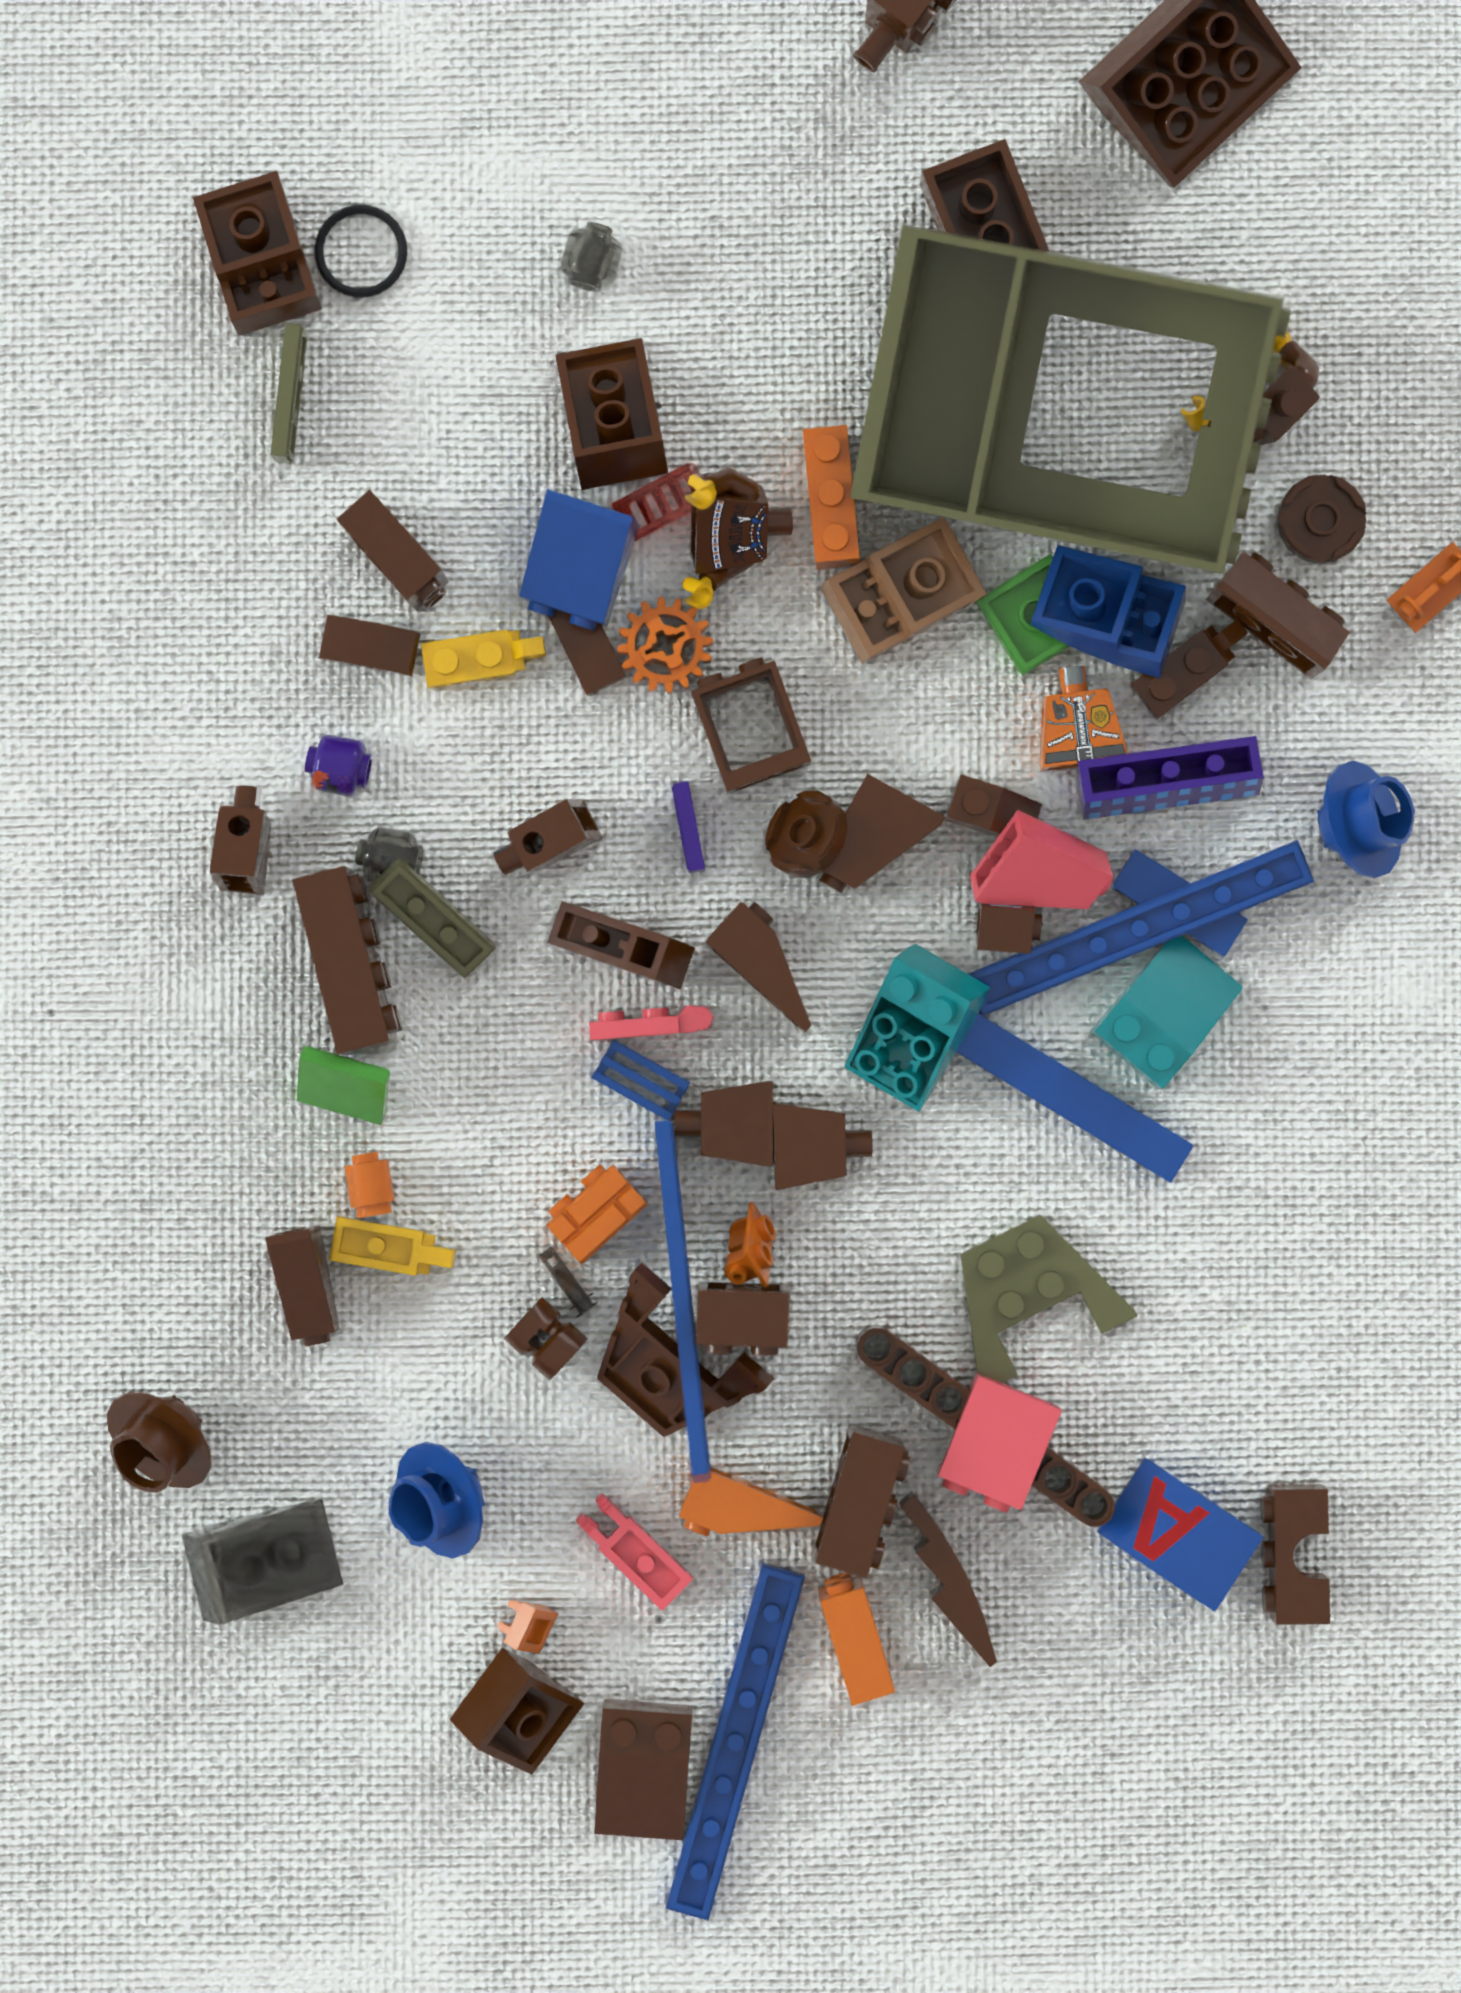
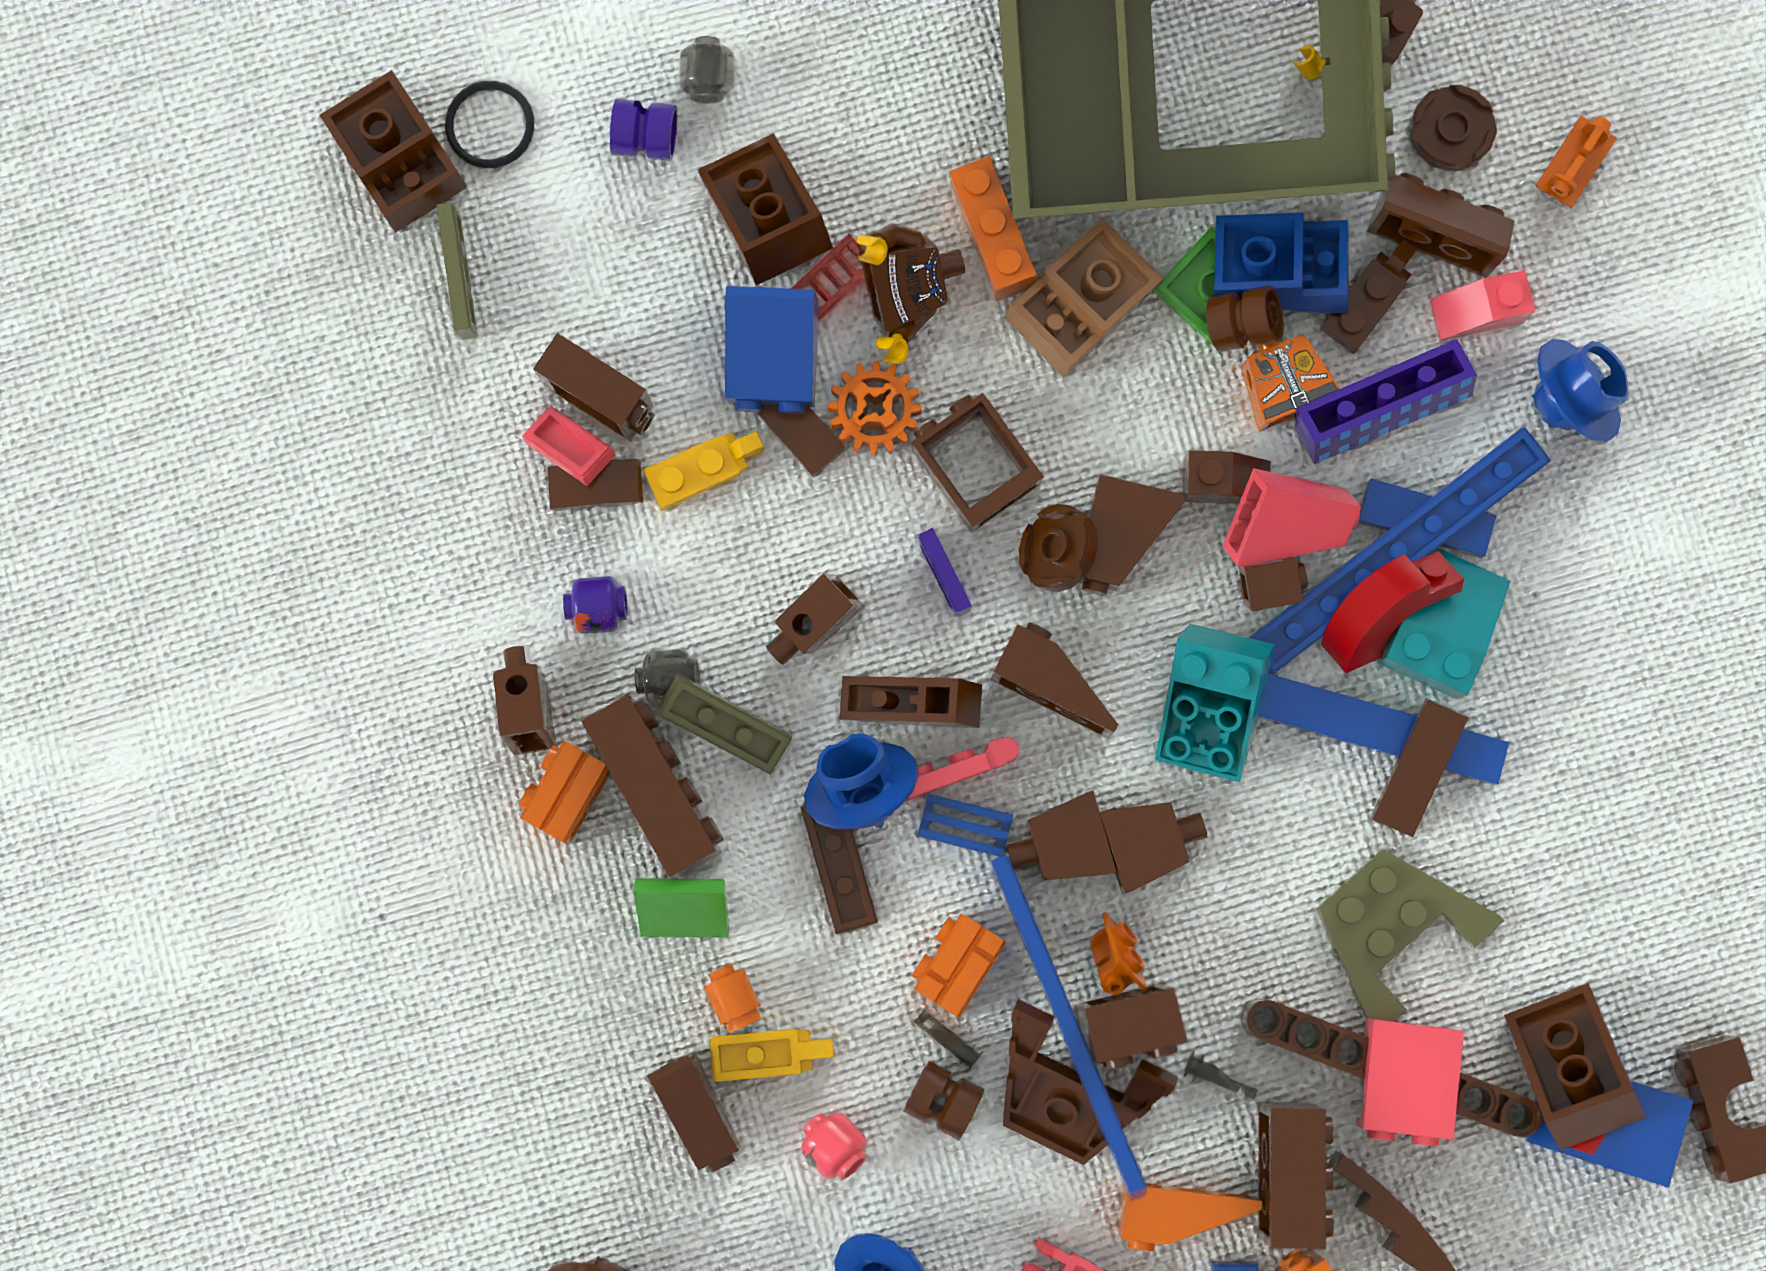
camera: 20 degrees left, 5 degrees down
(259, 941) = (564, 792): none -> orange brick
(353, 600) = (568, 445): none -> coral tile
(428, 1352) = (834, 1145): none -> coral head
(508, 1084) = (840, 875): none -> reddish brown tile
(512, 300) = (643, 129): none -> dark purple wheel
(548, 1012) = (860, 783): none -> blue helmet
(813, 1385) = (1211, 1073): none -> clear smoke piece
(1052, 658) = (1238, 319): none -> reddish brown wheel
(1098, 1145) = (1419, 767): none -> reddish brown tile
(1108, 975) = (1382, 602): none -> red arch
(1159, 1473) = (1574, 1067): none -> reddish brown slope
(1295, 708) = (1483, 306): none -> coral slope

